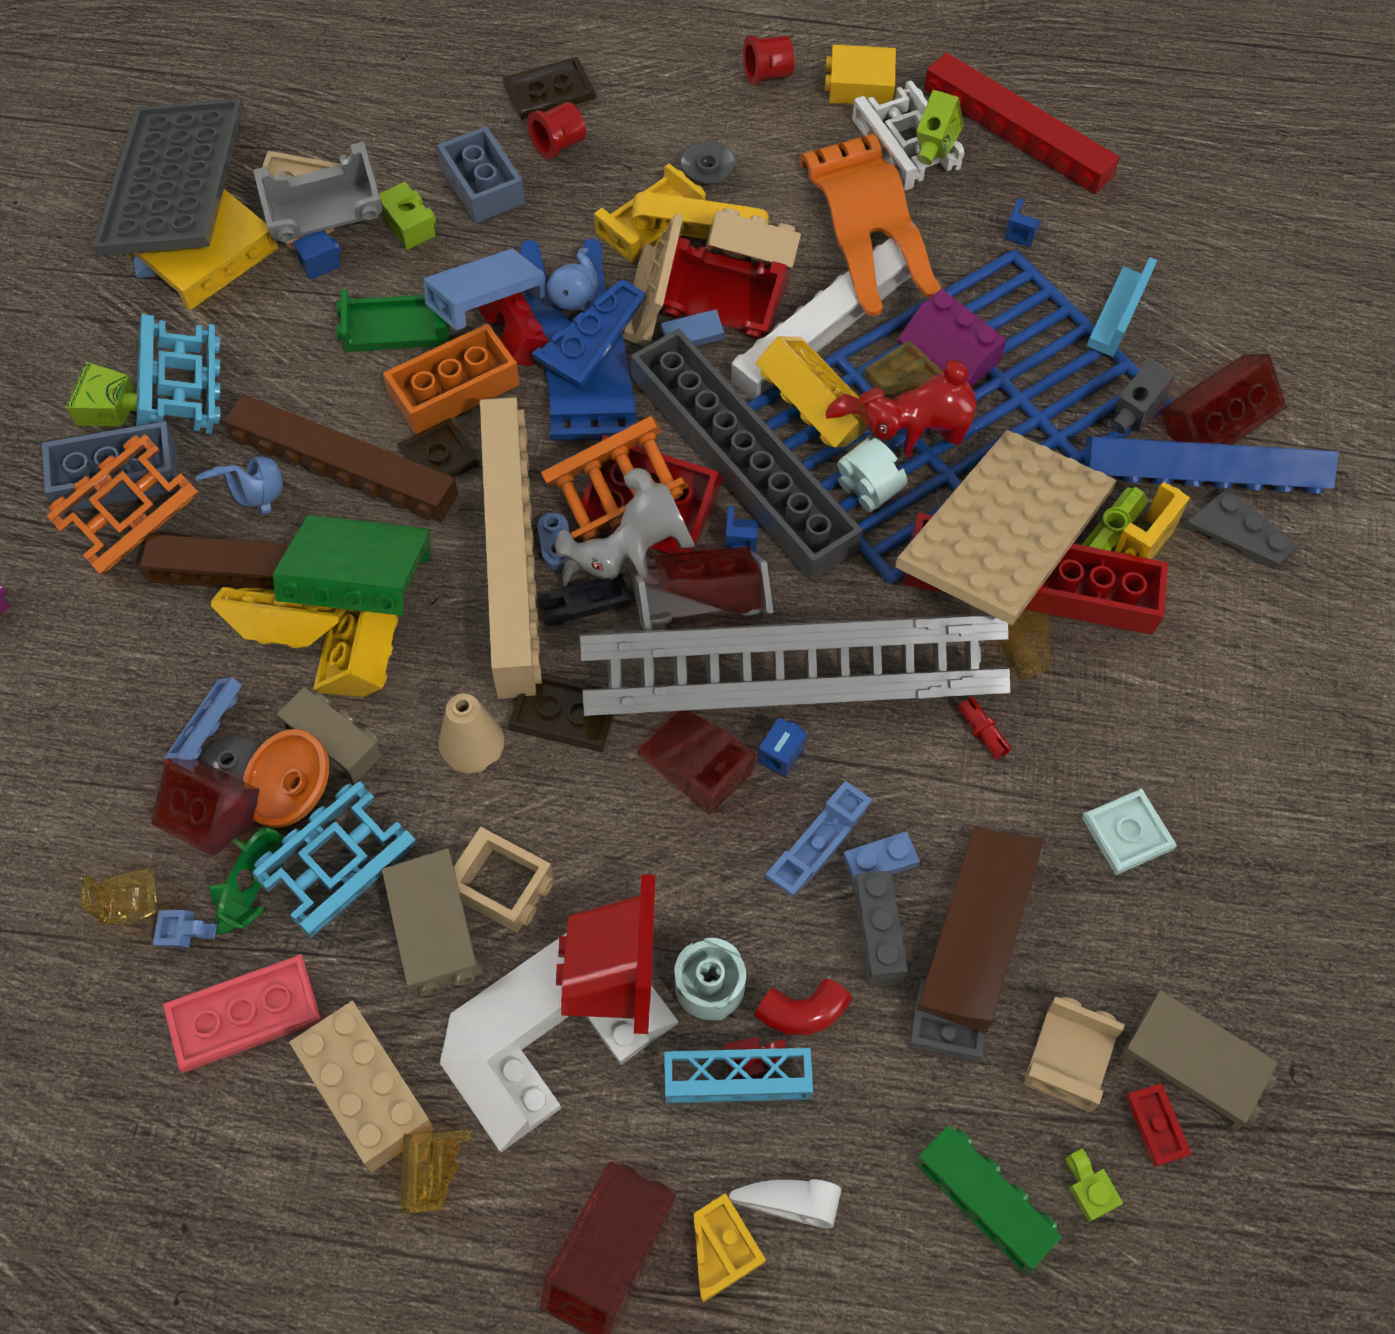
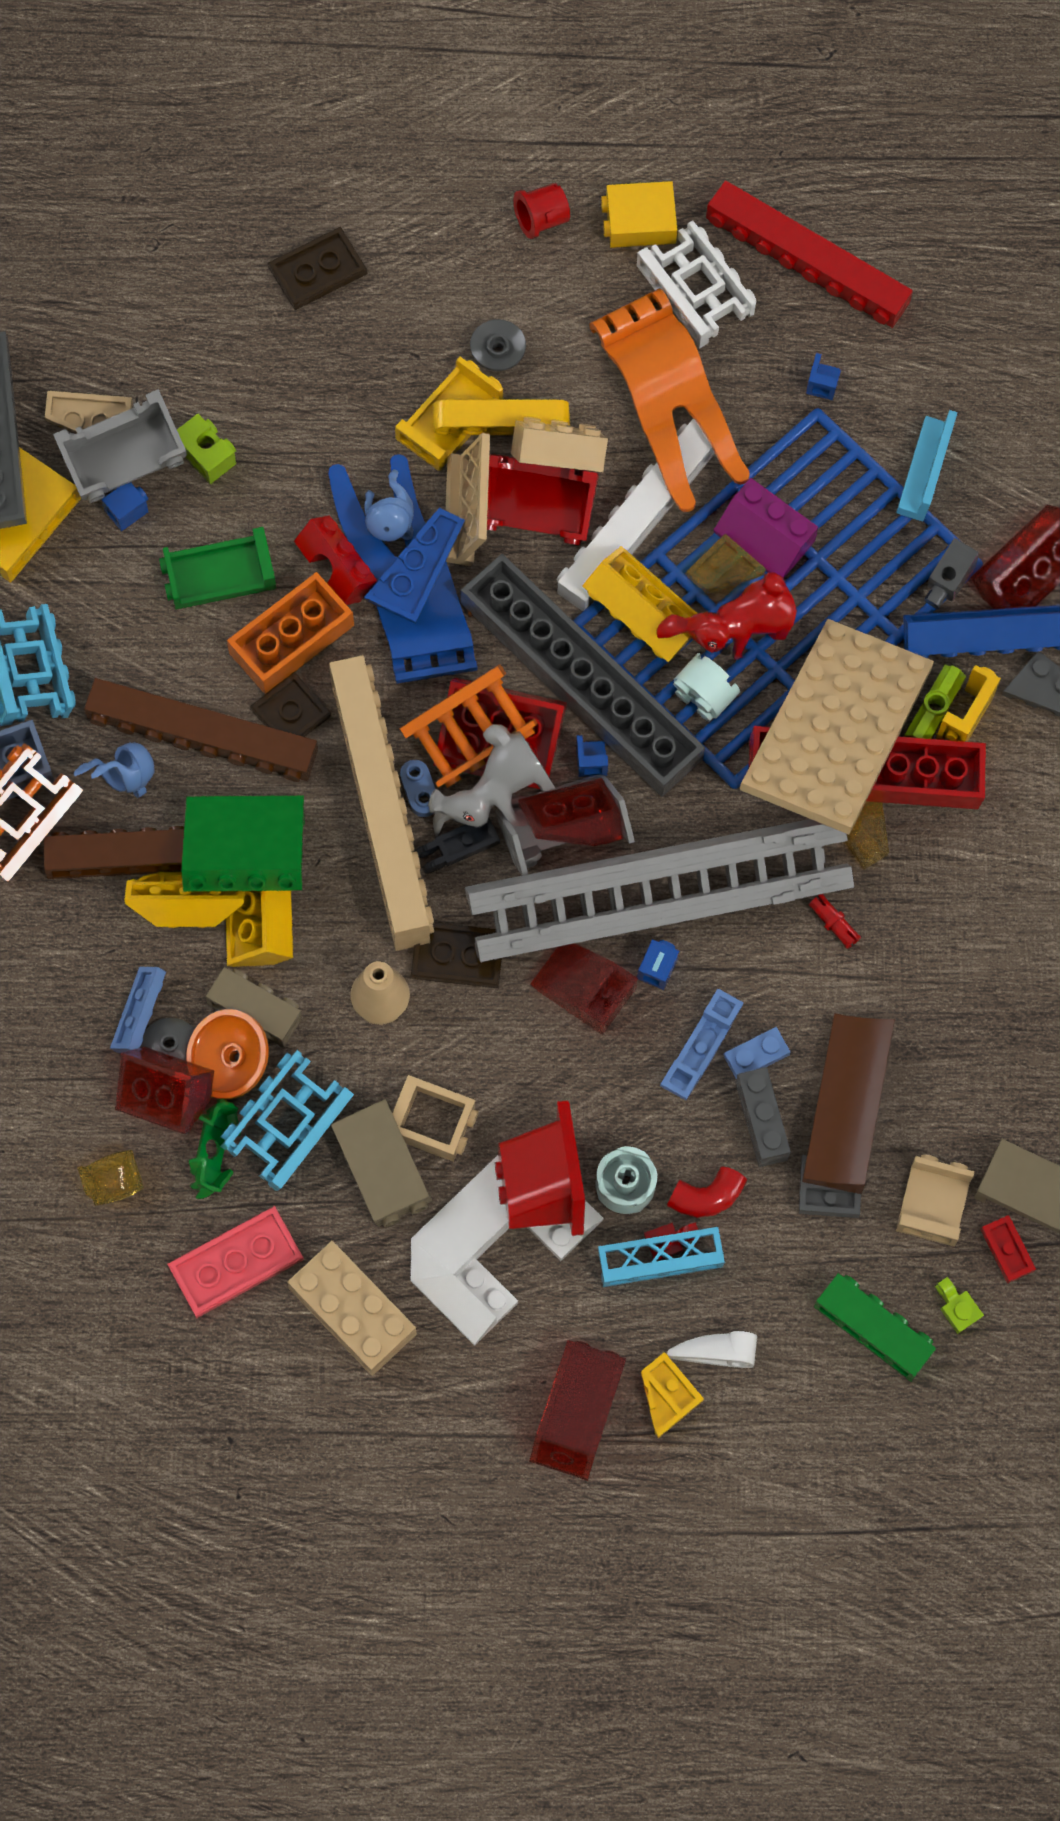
camera: 10 degrees left, 10 degrees up
(177, 927) = (164, 1198): medium blue plate -> none
(429, 1168) = (421, 1365): clear yellow wing -> none
(480, 283) = (303, 530): medium blue panel -> none
(481, 174) = (271, 392): sand blue brick -> none
(556, 129) = (337, 327): red piece -> none
(698, 328) = (513, 542): medium blue tile -> none
(939, 127) = (728, 277): lime torso -> none
(1128, 831) = (968, 999): light aqua tile -> none

